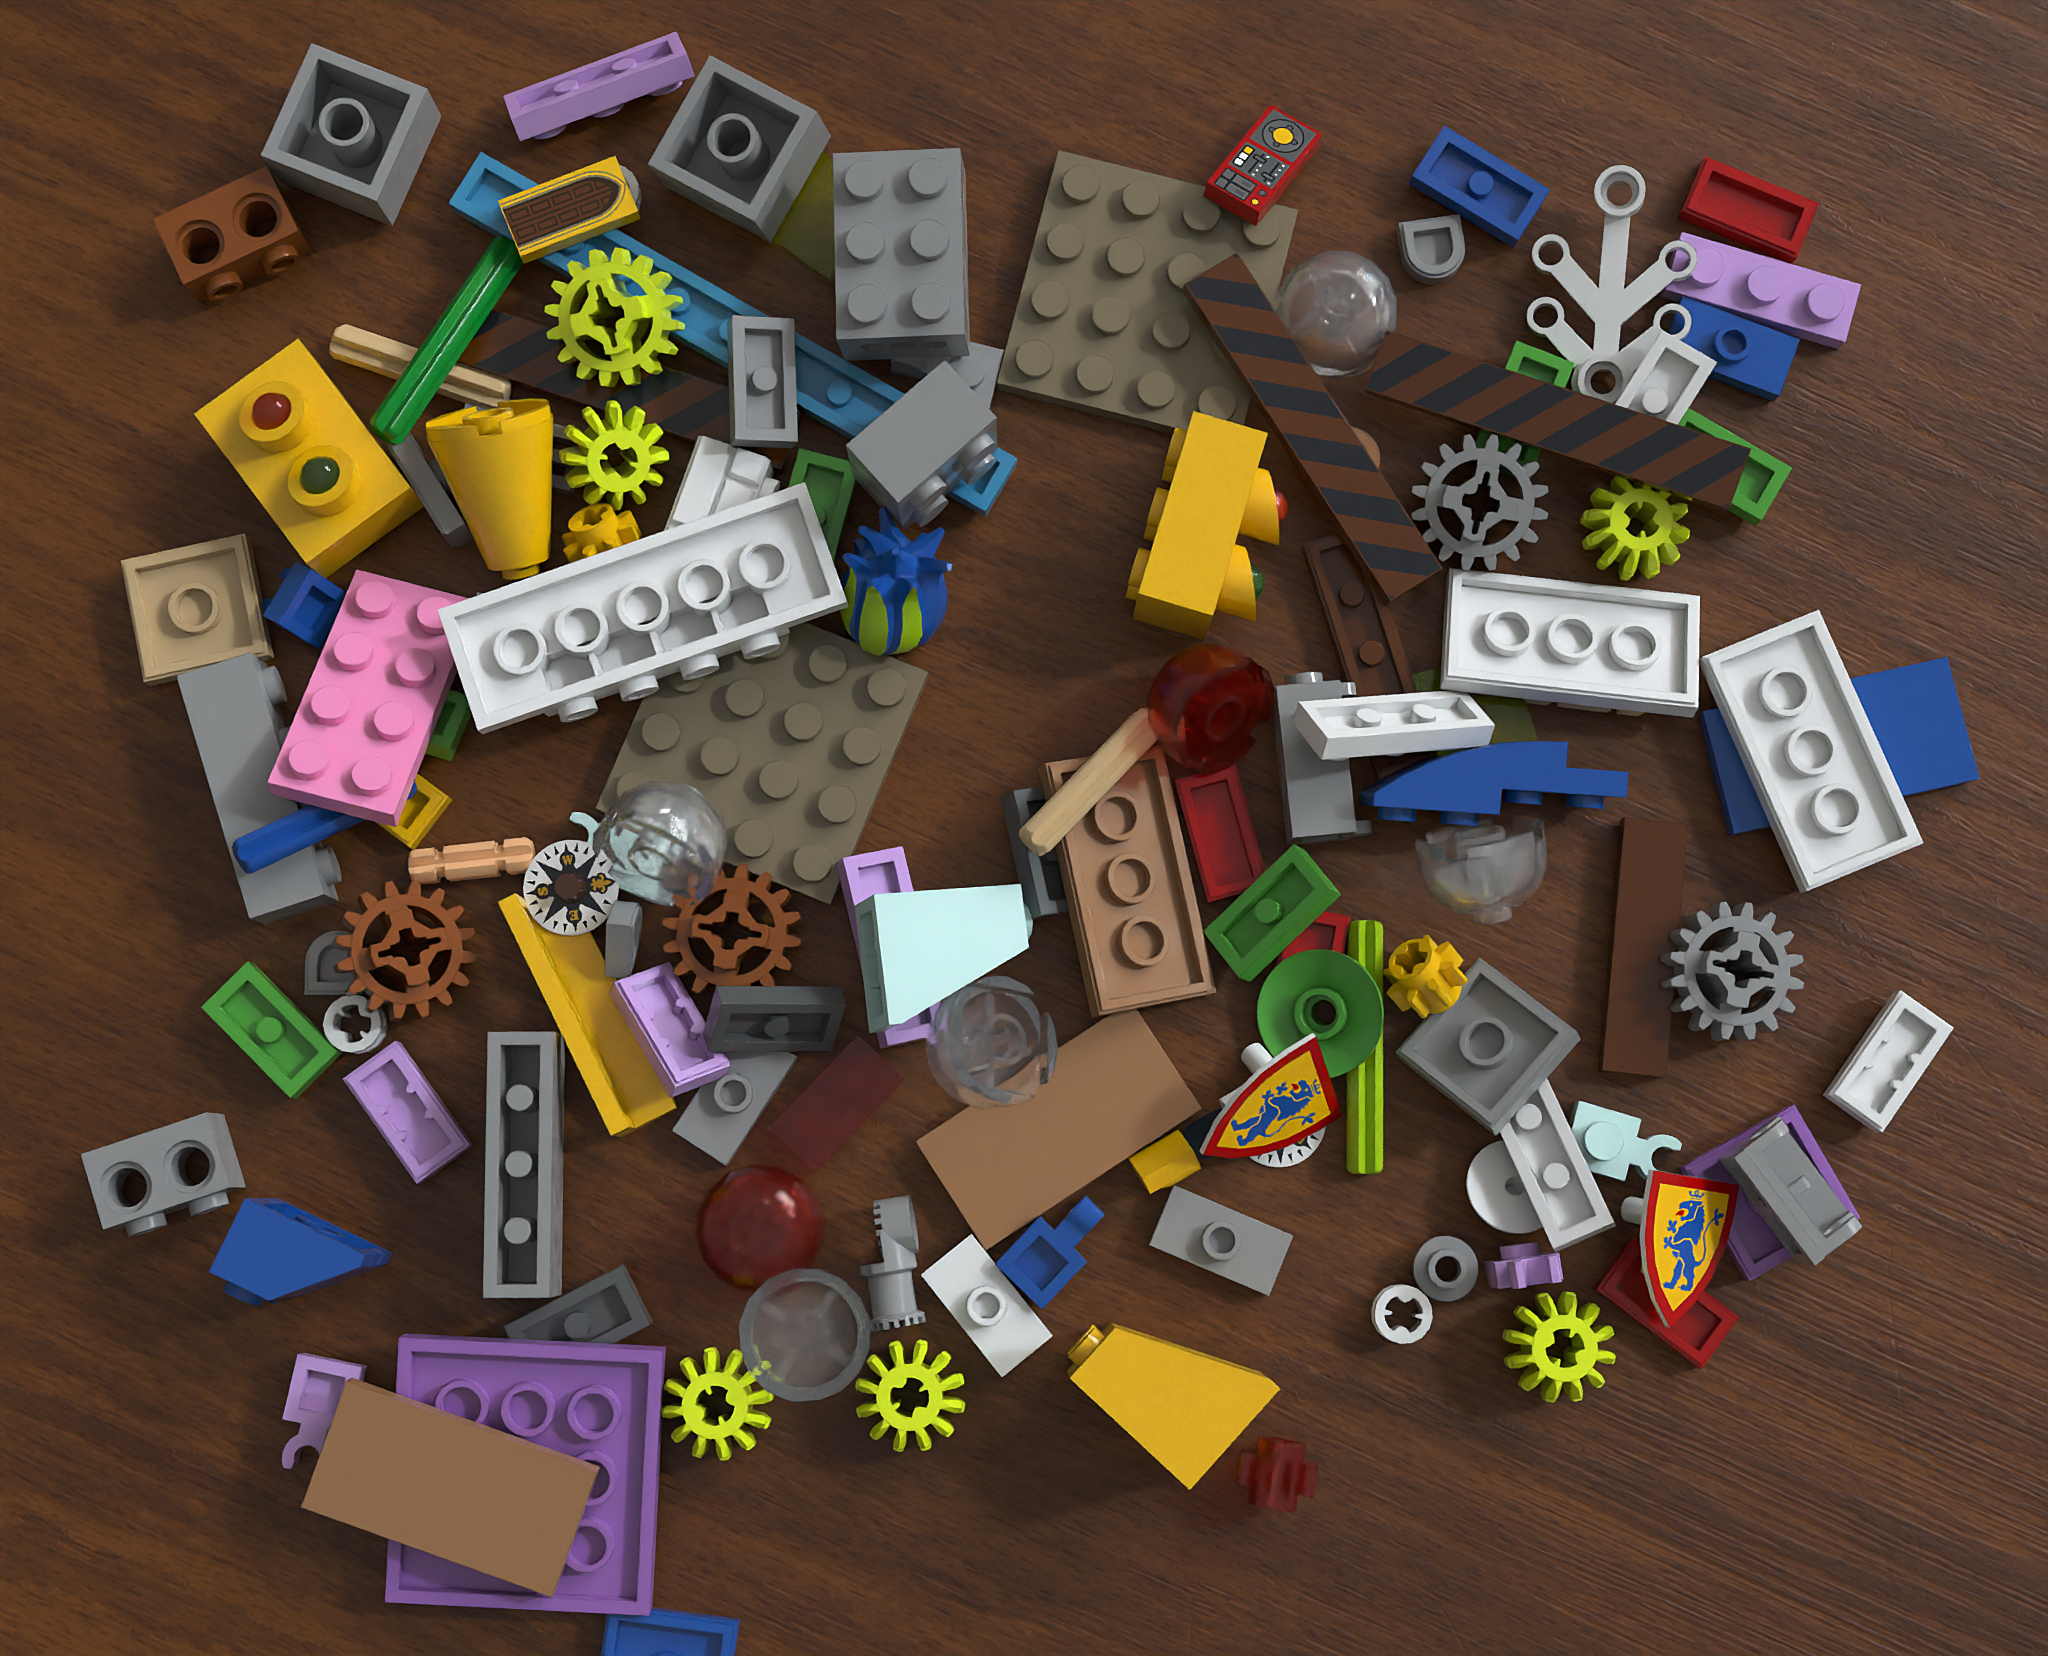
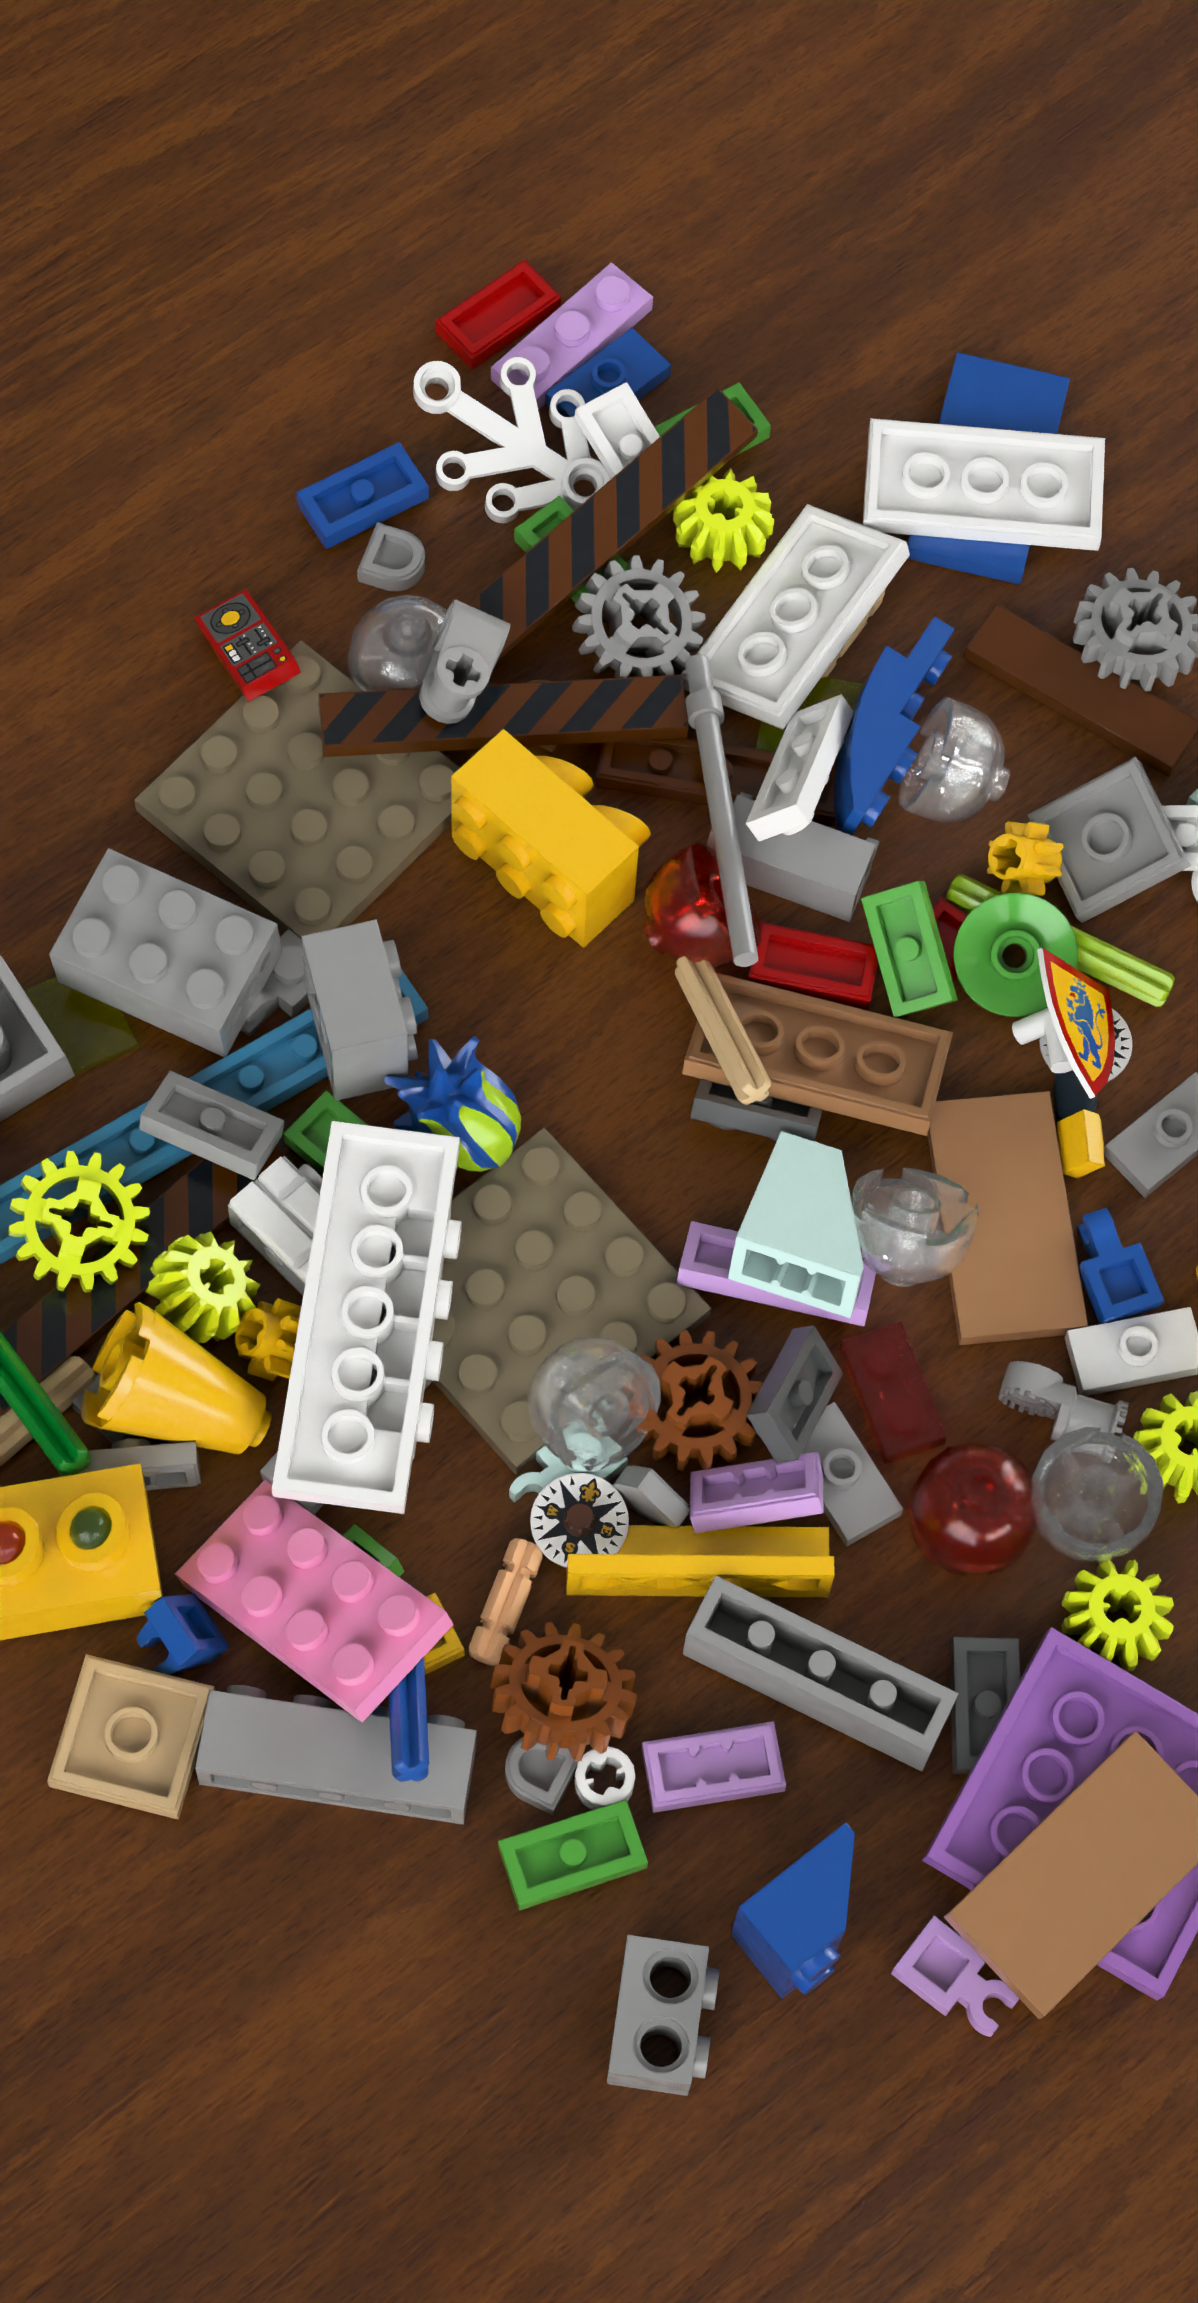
camera: 65 degrees left, 15 degrees down
(1339, 361) = (461, 661): none -> light grey piece
(1411, 610) = (706, 715): none -> light grey bar

